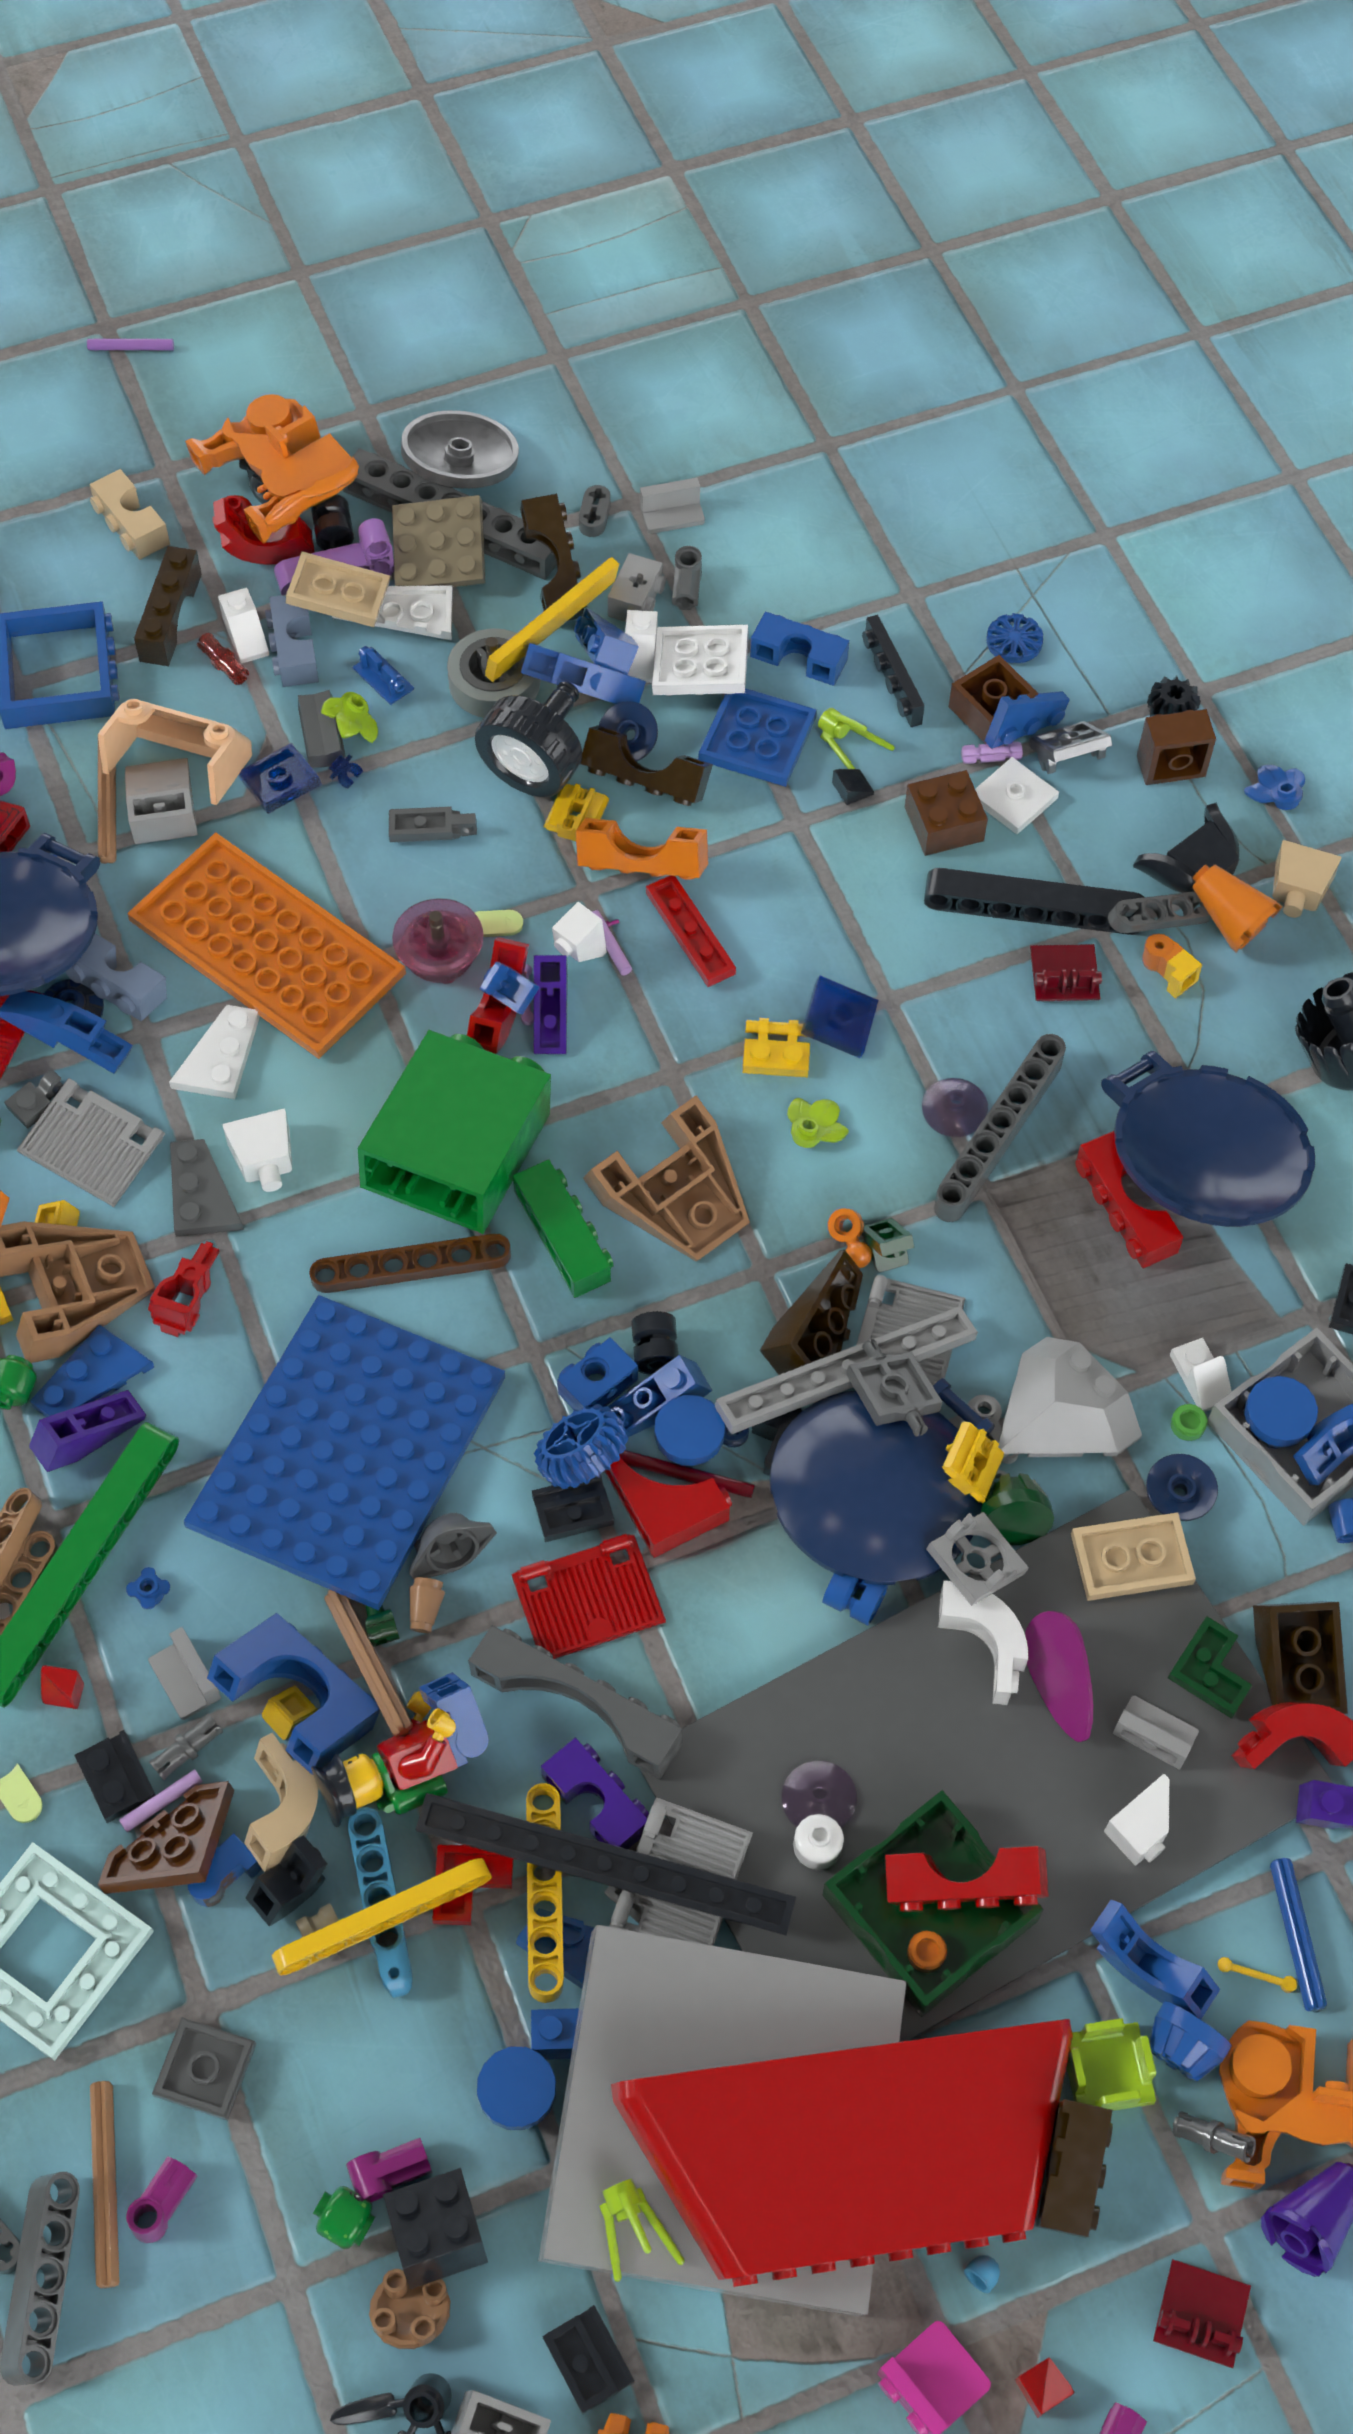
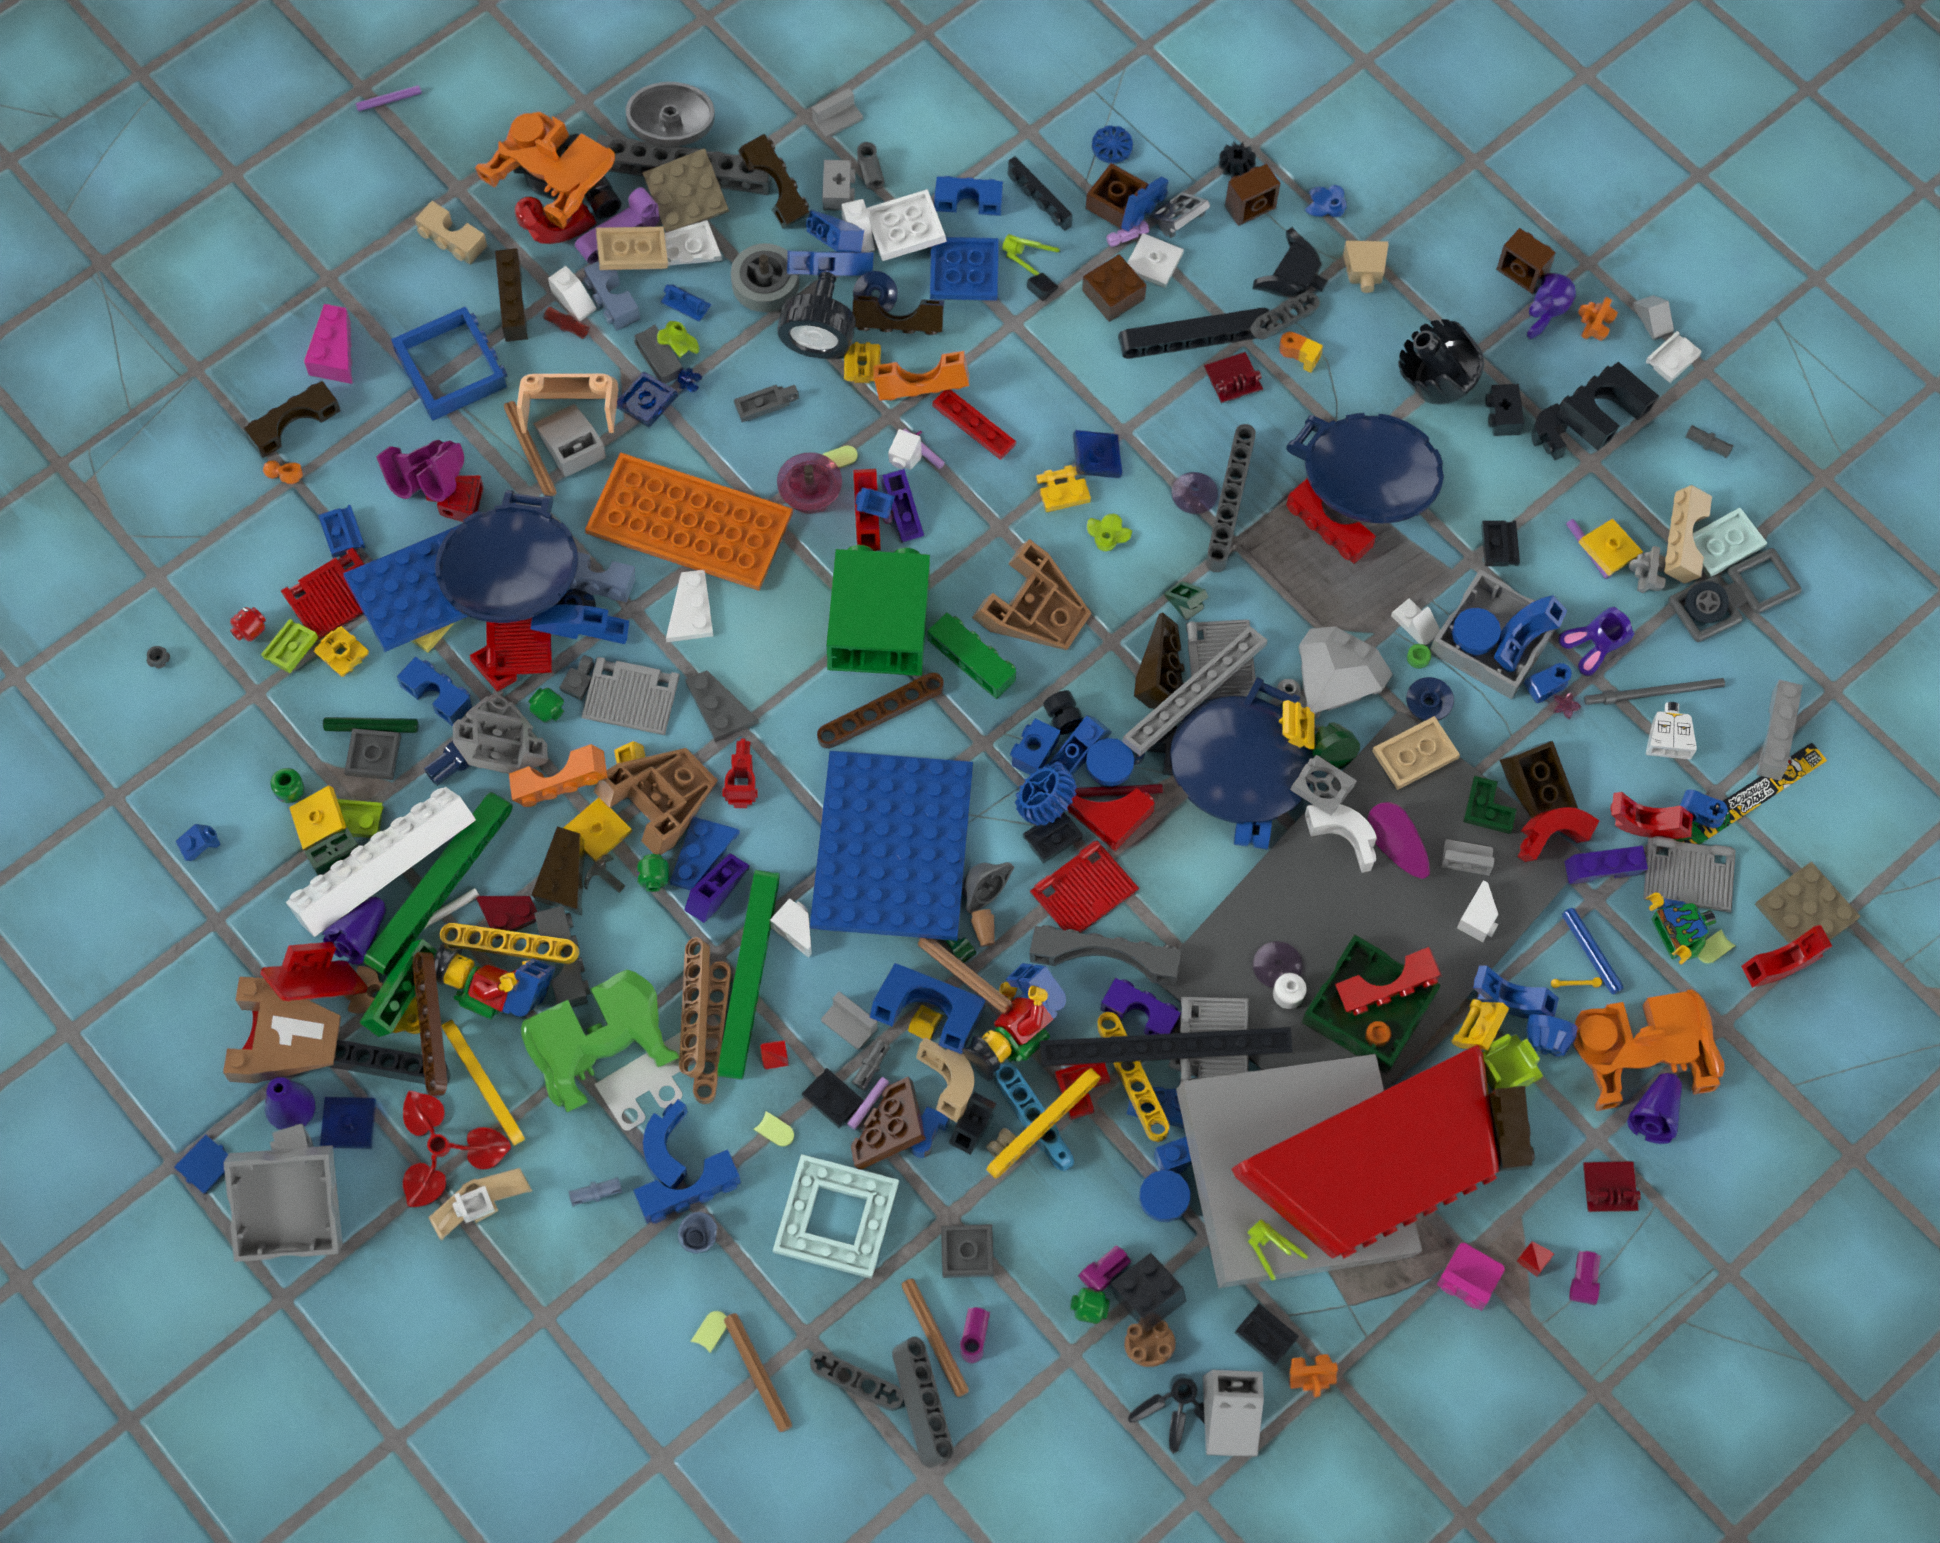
camera: 20 degrees left, 5 degrees up
(150, 1598) = (804, 982): blue plate -> none
(164, 1511) = (793, 925): none -> white slope
(261, 1147) = (749, 664): white torso -> none
(551, 619) = (794, 227): yellow tile -> none
(590, 510) = (787, 131): dark grey beam -> none
(857, 1250) = (1170, 609): orange plate -> none
(894, 1388) = (1232, 693): dark grey plate -> none
(983, 2273) = (1477, 1207): dark azure hinge -> none
(1086, 1990) = (1485, 1028): none -> yellow plate
(1214, 2136) = (1584, 1084): dark grey pin -> none
(1233, 905) = (1330, 297): orange cone -> none

